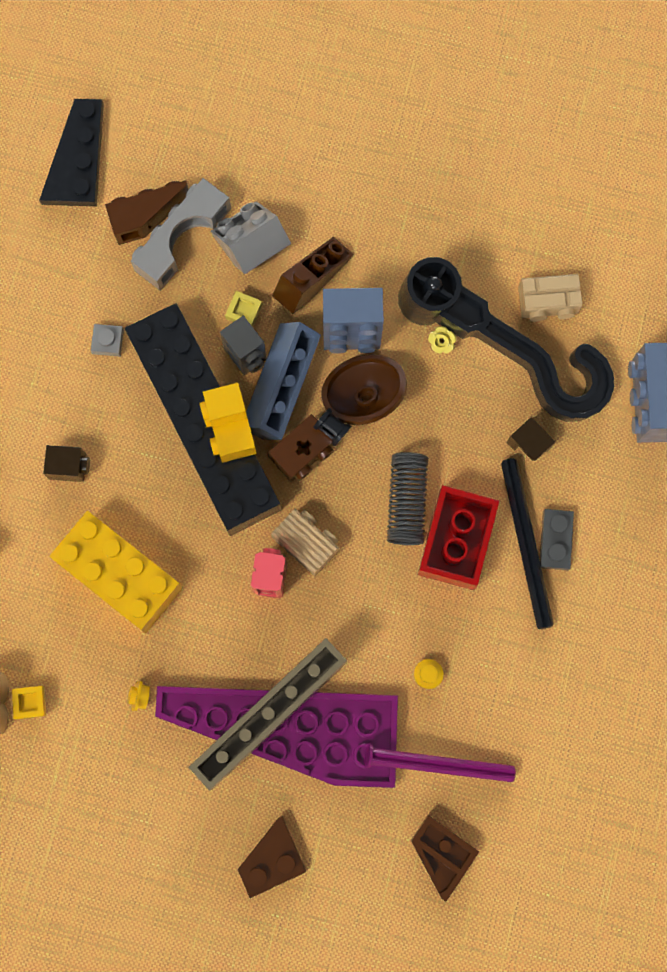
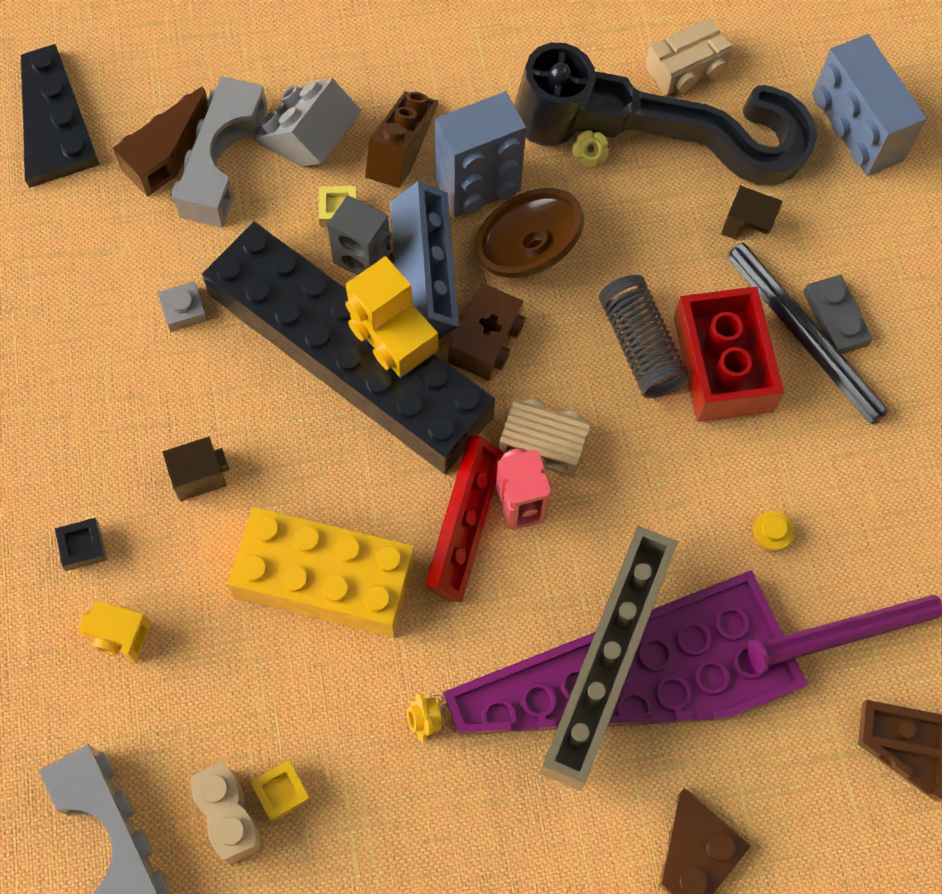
camera: 25 degrees left, 10 degrees down
(225, 576) = (464, 520): none -> red plate
(332, 426) = (515, 283): black bush -> none

